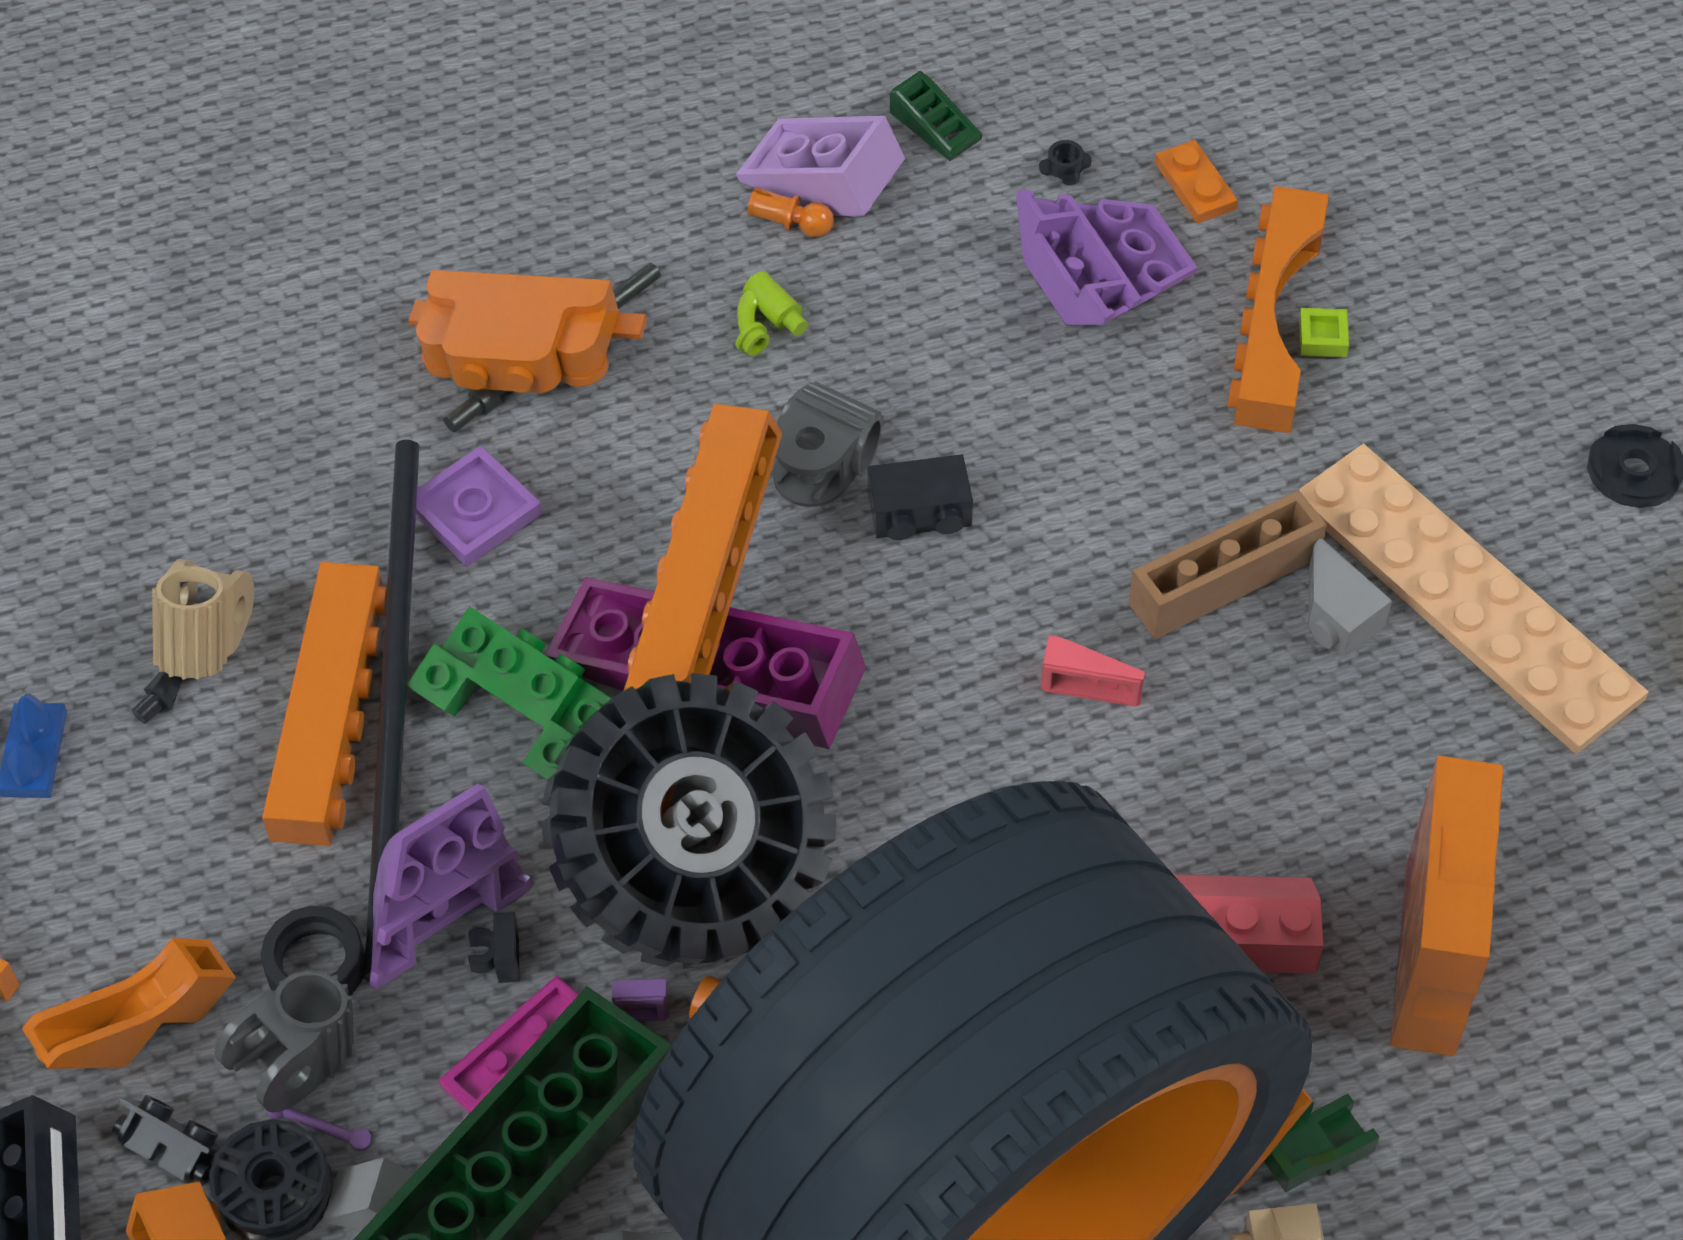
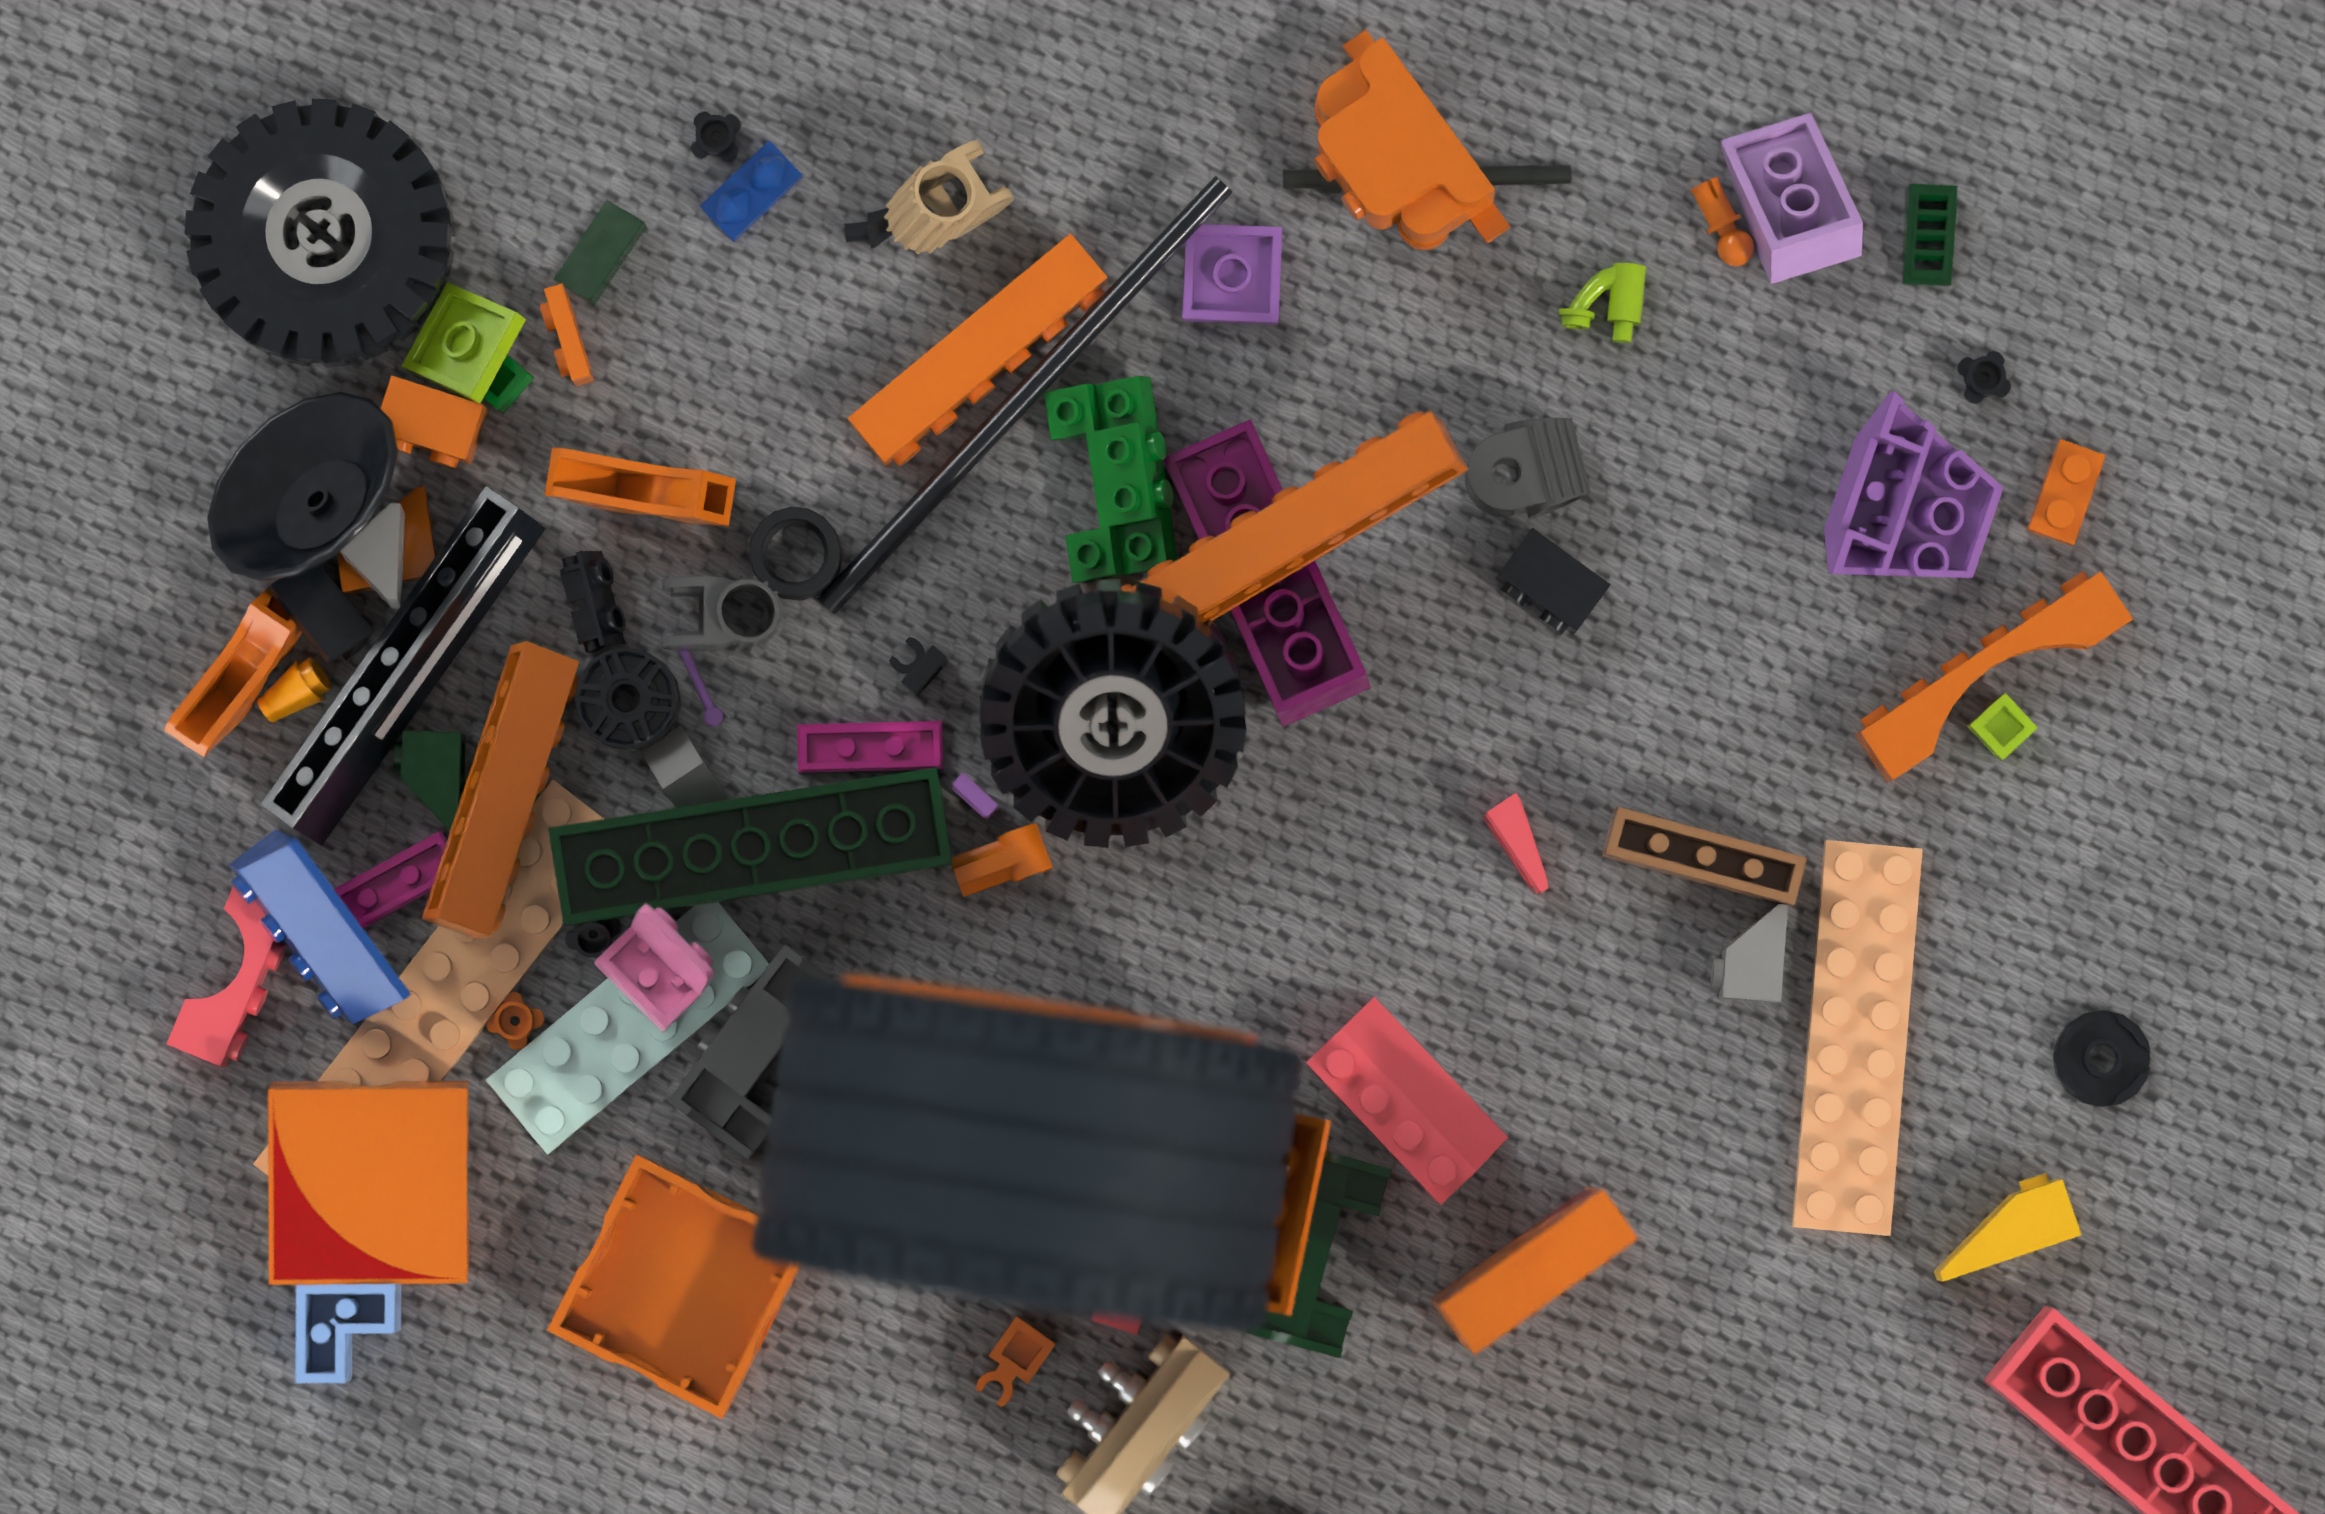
camera: 40 degrees right, 30 degrees up
(437, 875) = (906, 590): medium lavender wedge -> none

